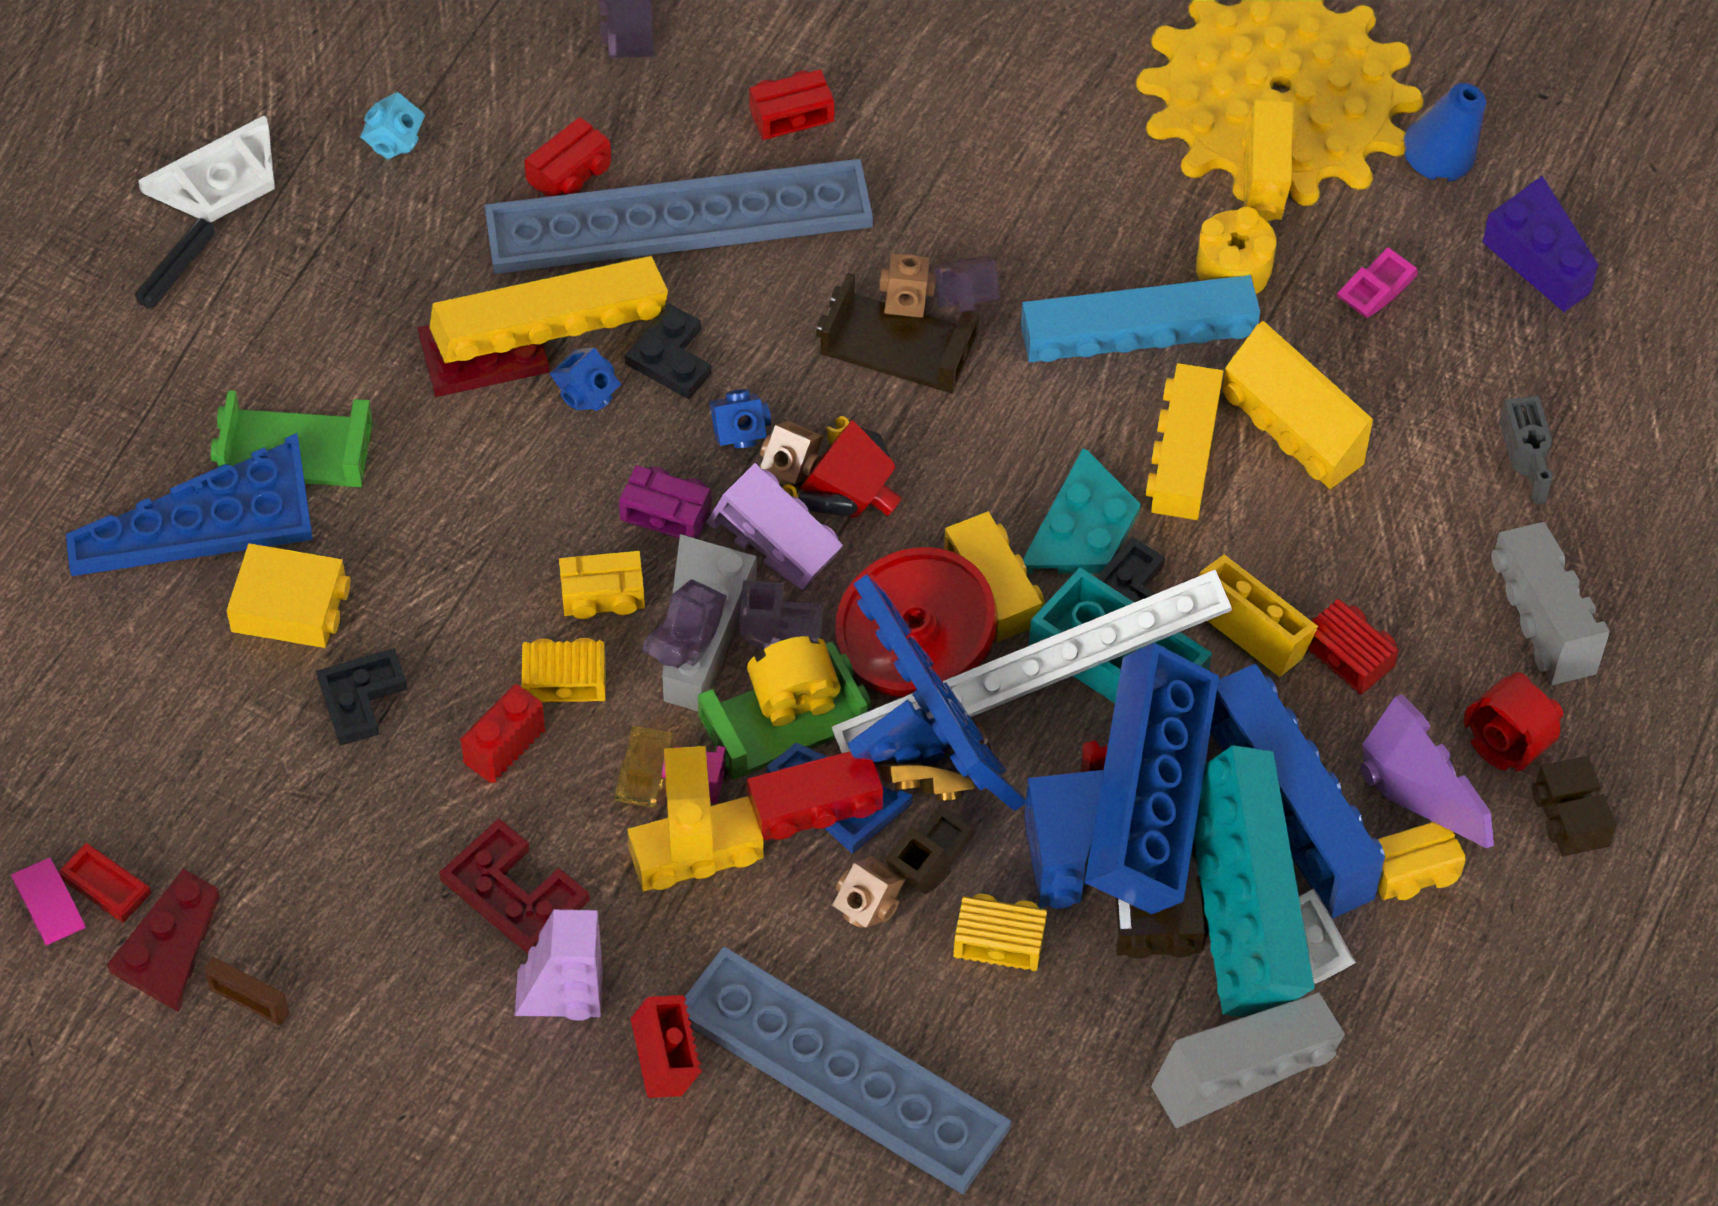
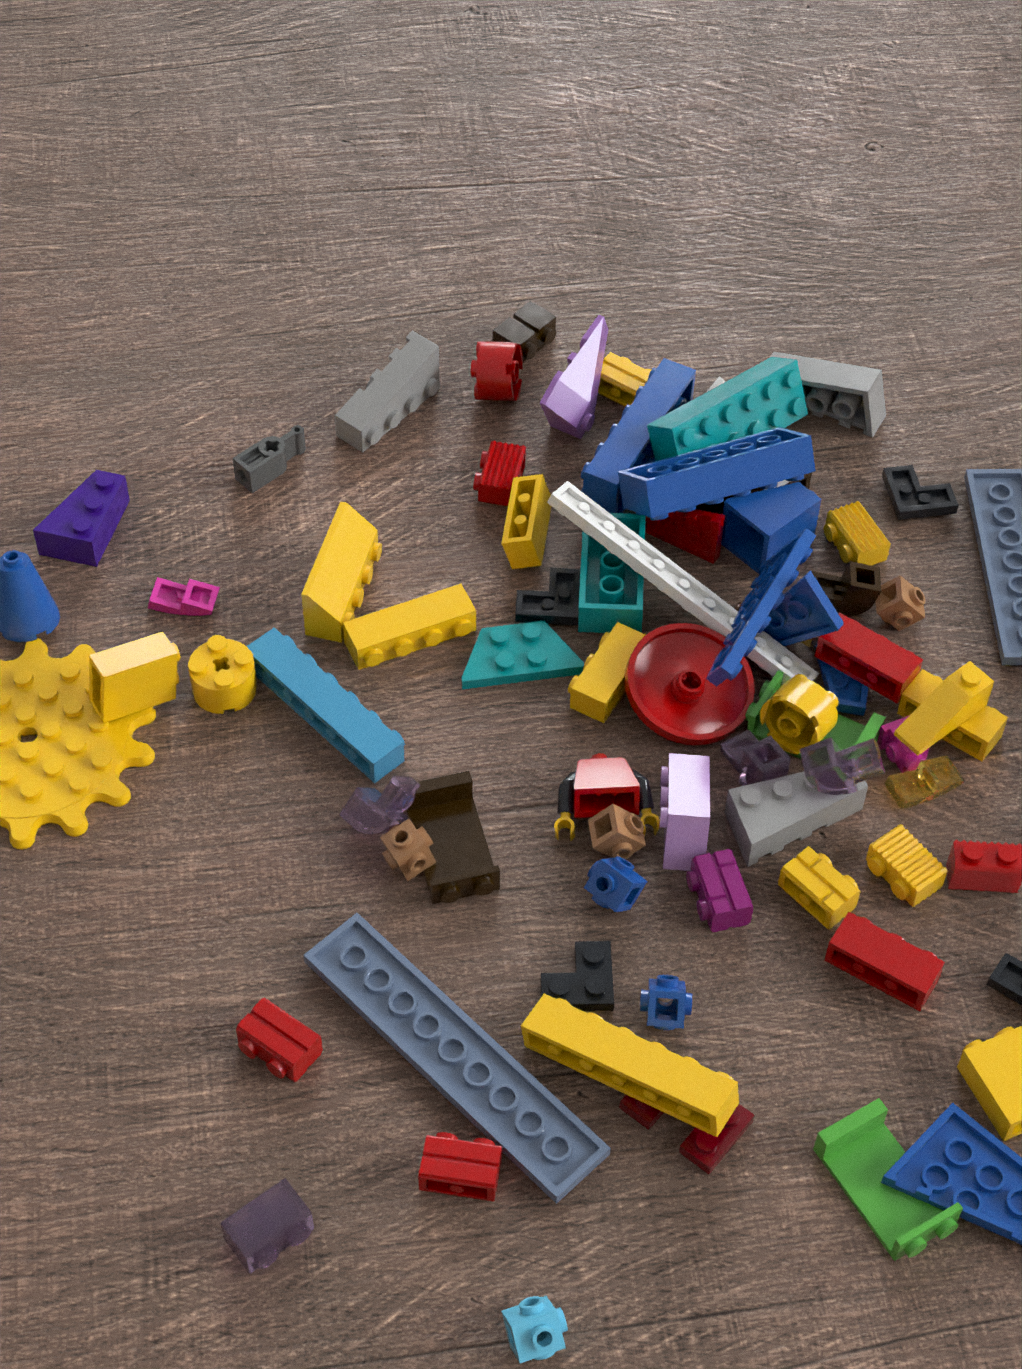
camera: 125 degrees left, 5 degrees down
(484, 581) = (884, 960): none -> red brick
(1015, 1036) = (917, 501): none -> black plate

